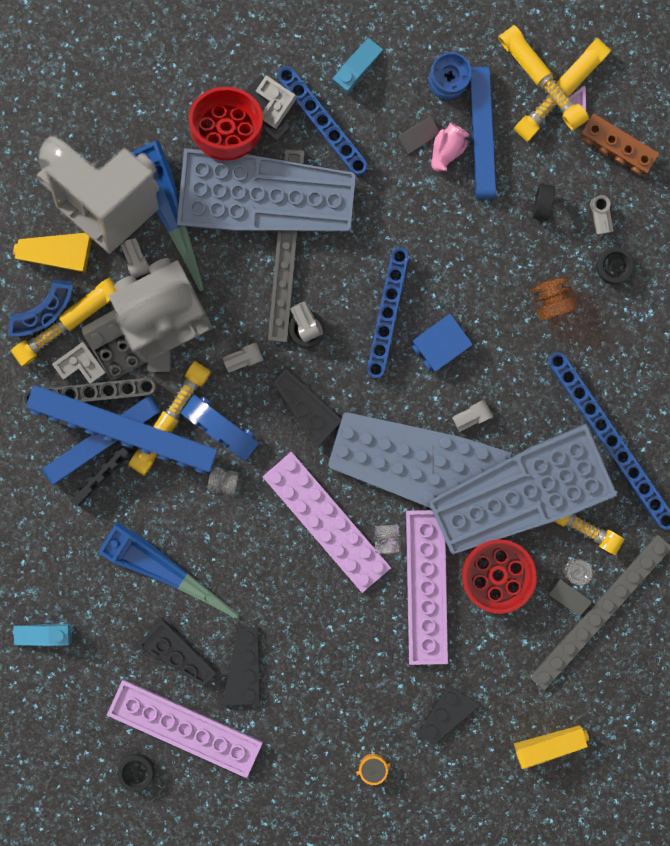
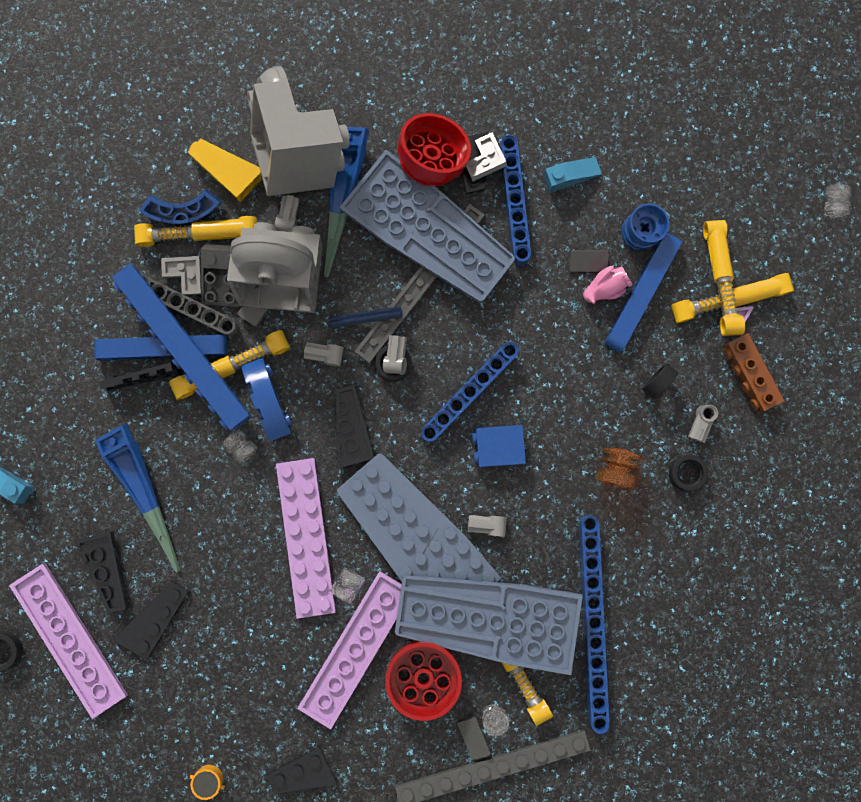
camera: 25 degrees right, 5 degrees down
(259, 304) = (366, 317): none -> dark blue axle

